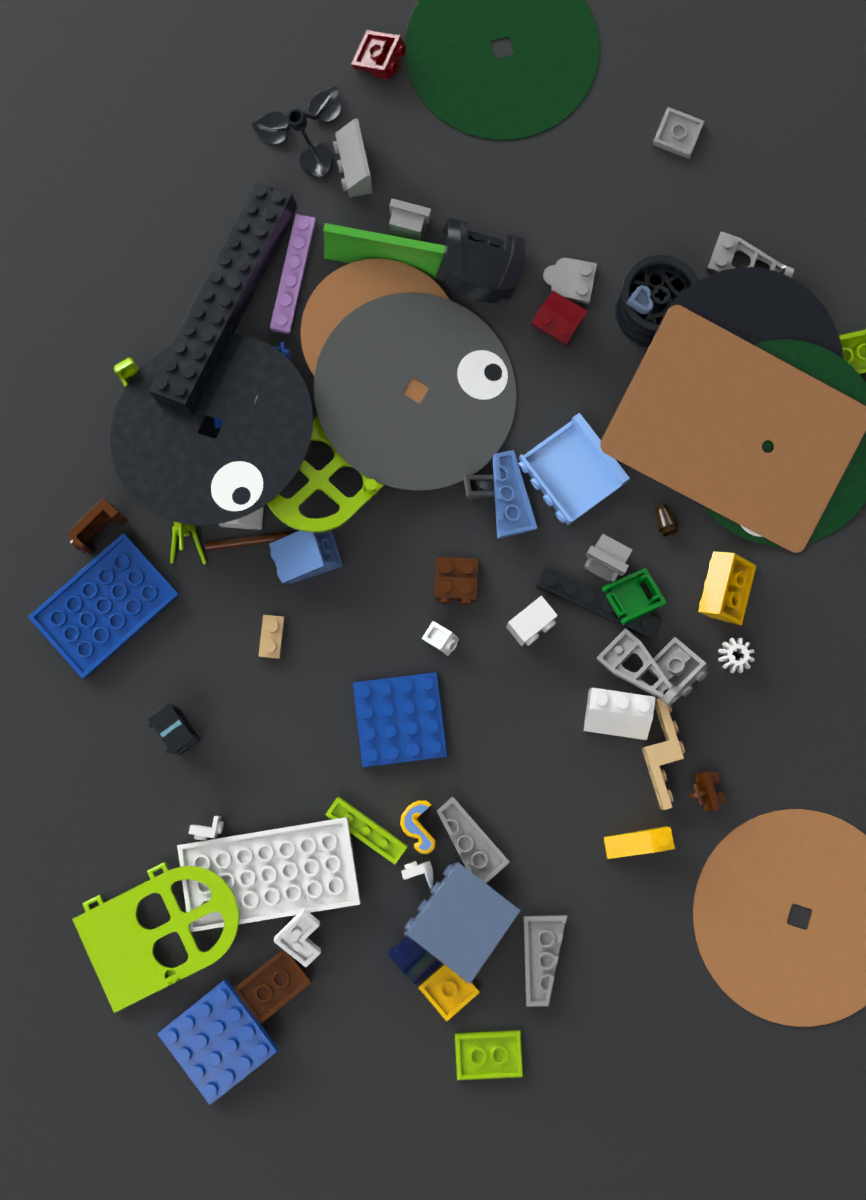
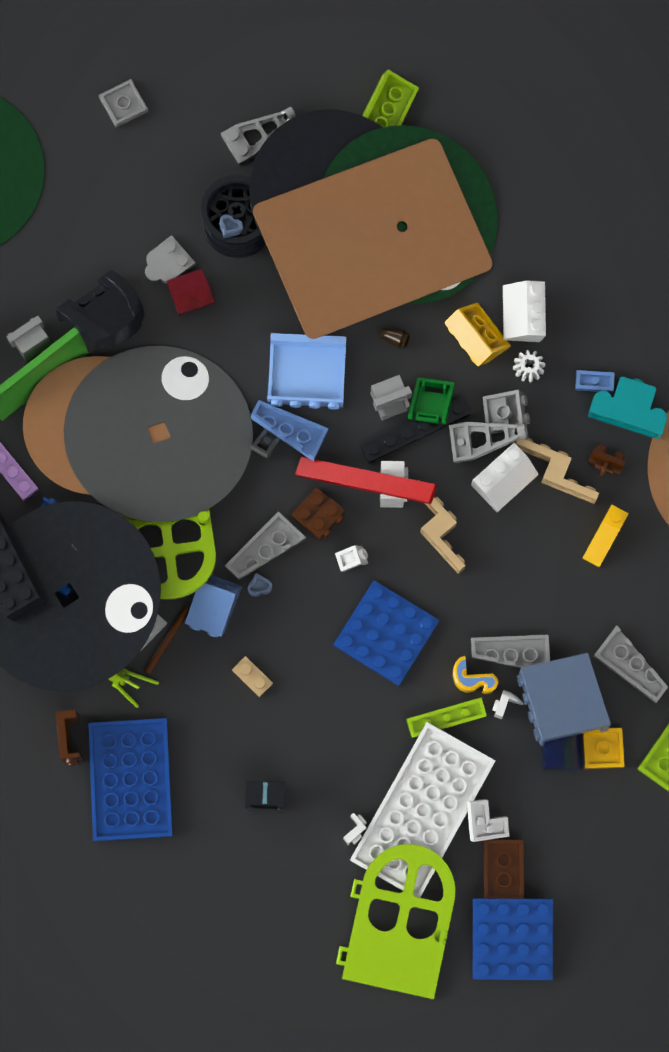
camera: 55 degrees left, 5 degrees down
(354, 579) = (259, 585): none -> sand blue tile
(393, 557) = (268, 543): none -> light grey wing
(514, 598) = (366, 480): none -> tile
(529, 690) = (437, 529): none -> tan bracket
(771, 723) = (594, 381): none -> medium blue plate
(772, 774) = (630, 408): none -> teal brick
(782, 612) = (524, 311): none -> white slope

